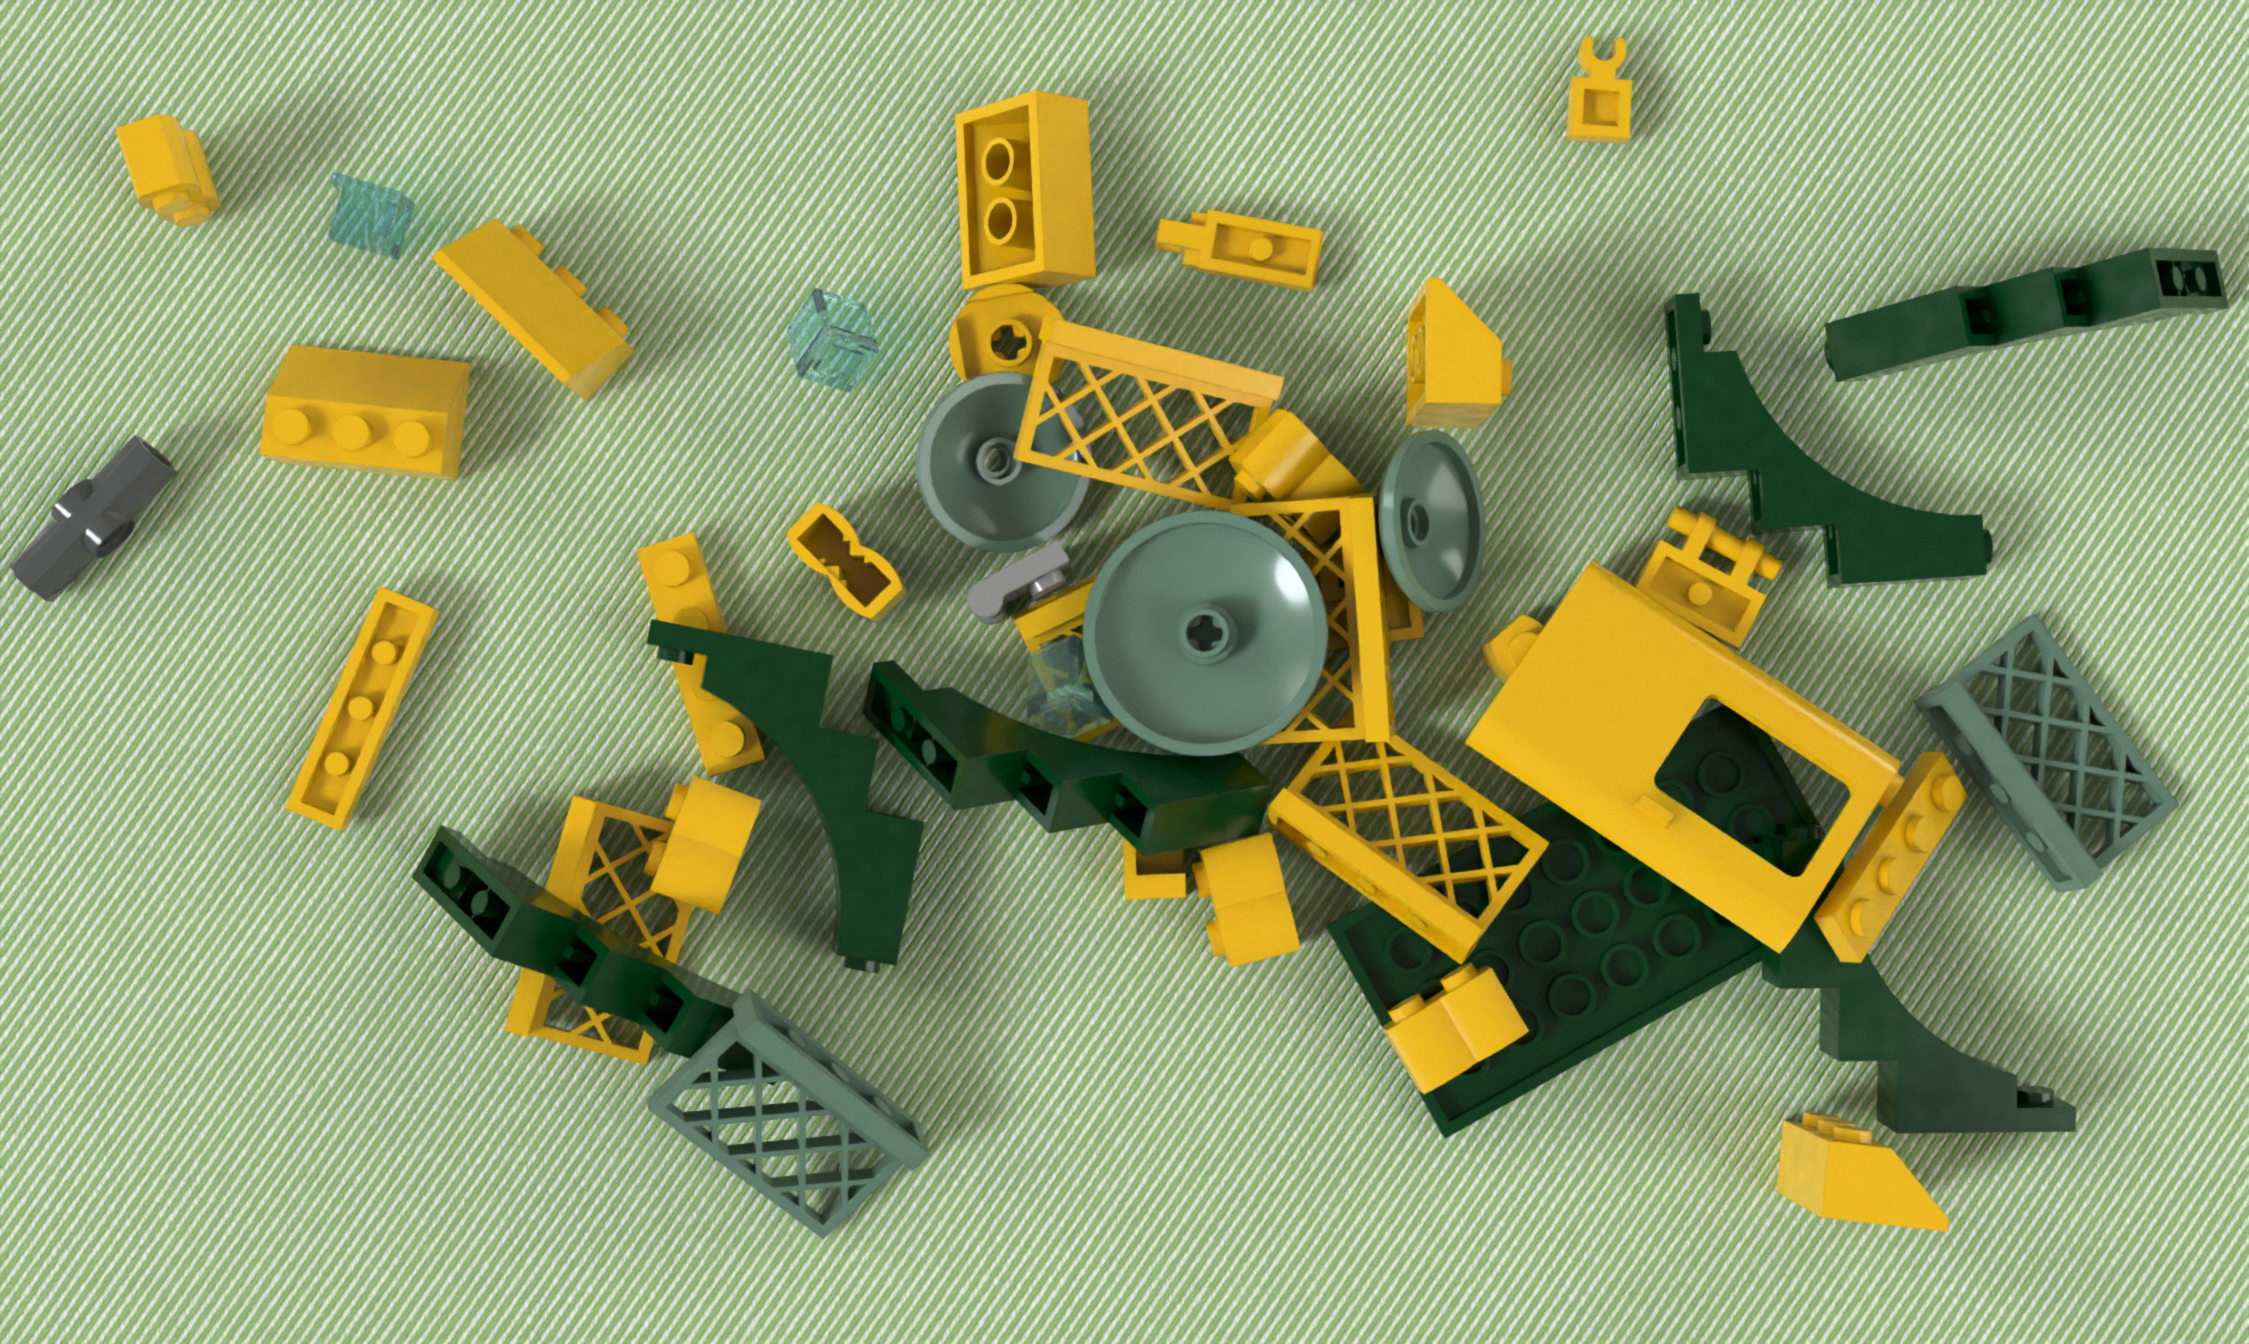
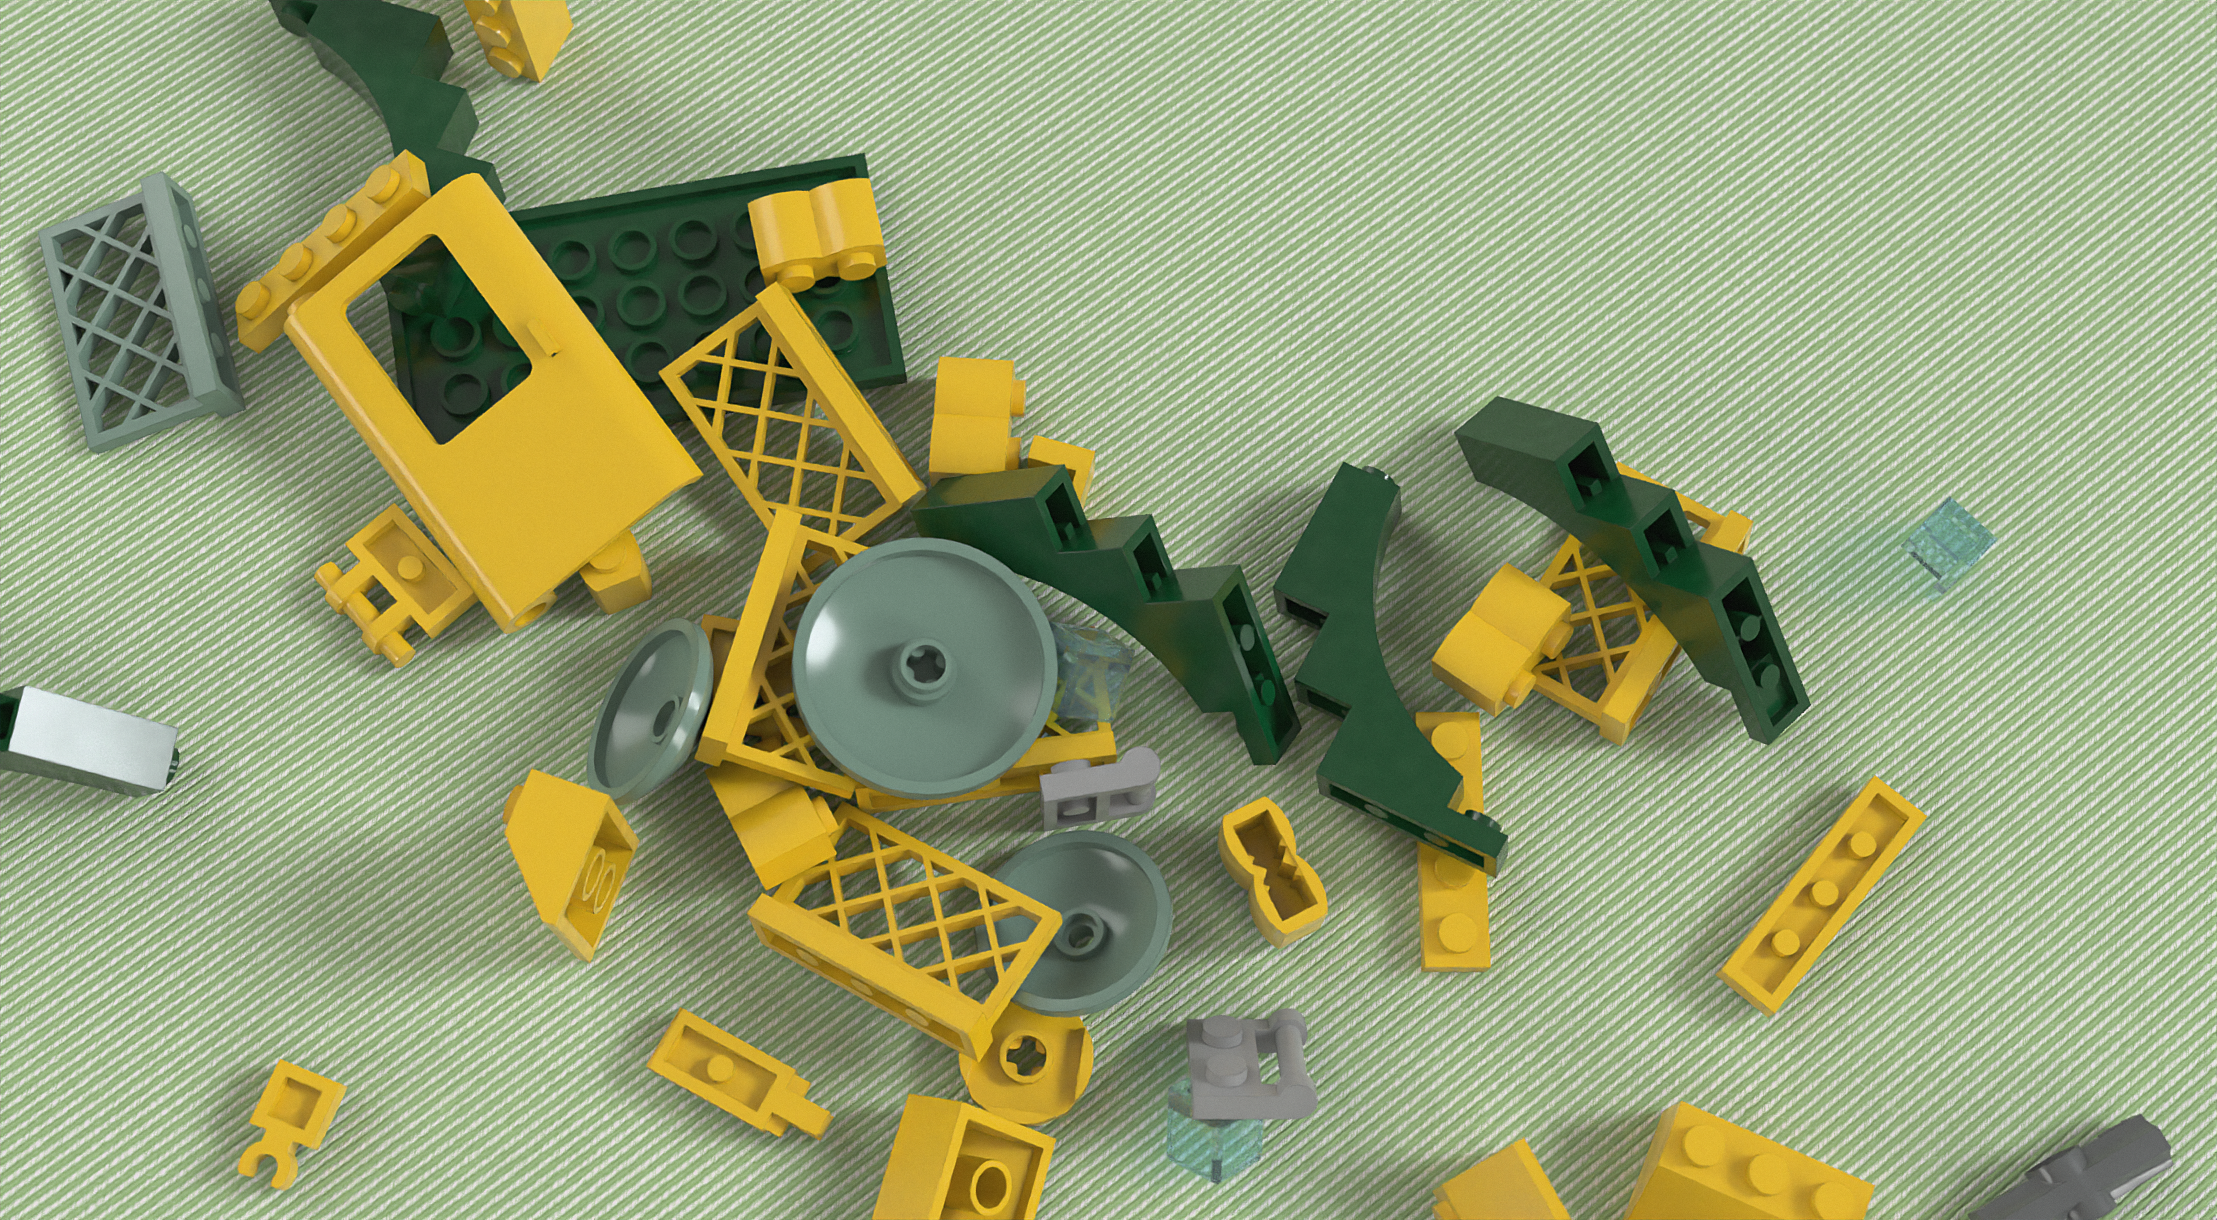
camera: 160 degrees left, 15 degrees down
(319, 1070) = (1948, 545): none -> clear light blue panel
(815, 1073) = (1451, 371): sand green fence -> none
(834, 381) = (1227, 1071): none -> light grey plate
(1729, 433) = (311, 715): dark green arch -> none

